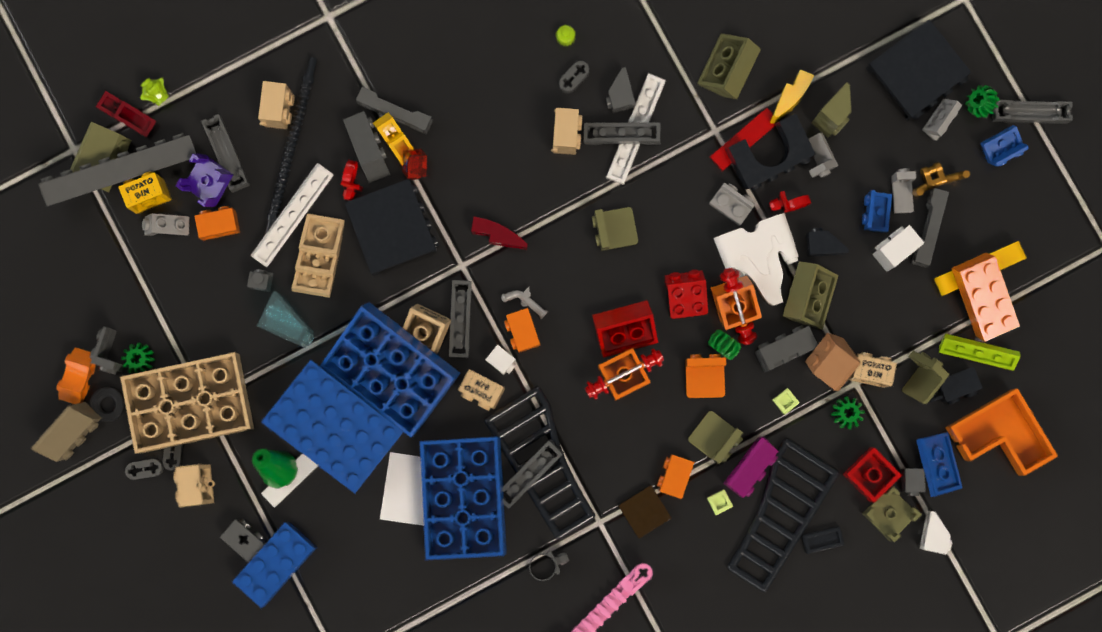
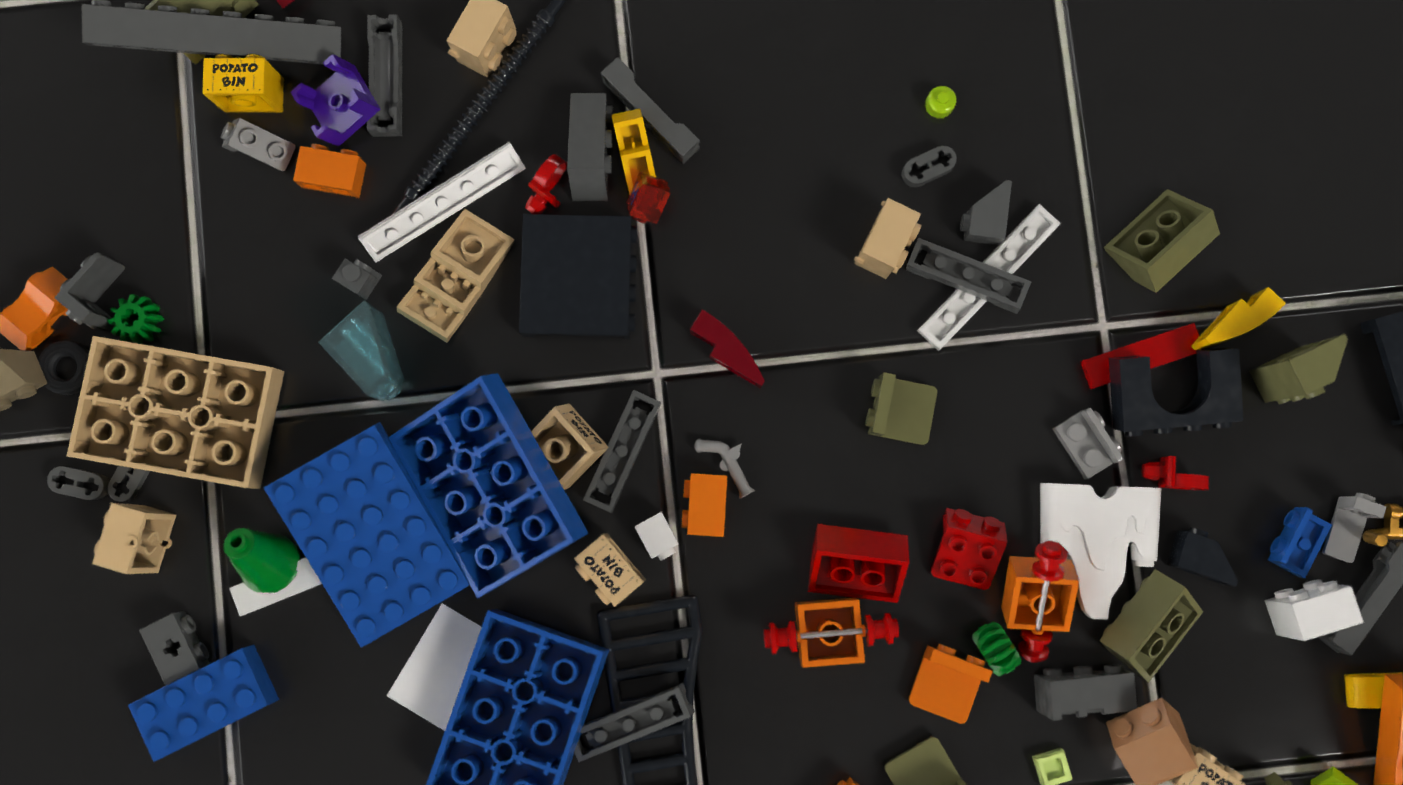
camera: 20 degrees right, 0 degrees up
(823, 157) = (1252, 431): light grey bracket -> none

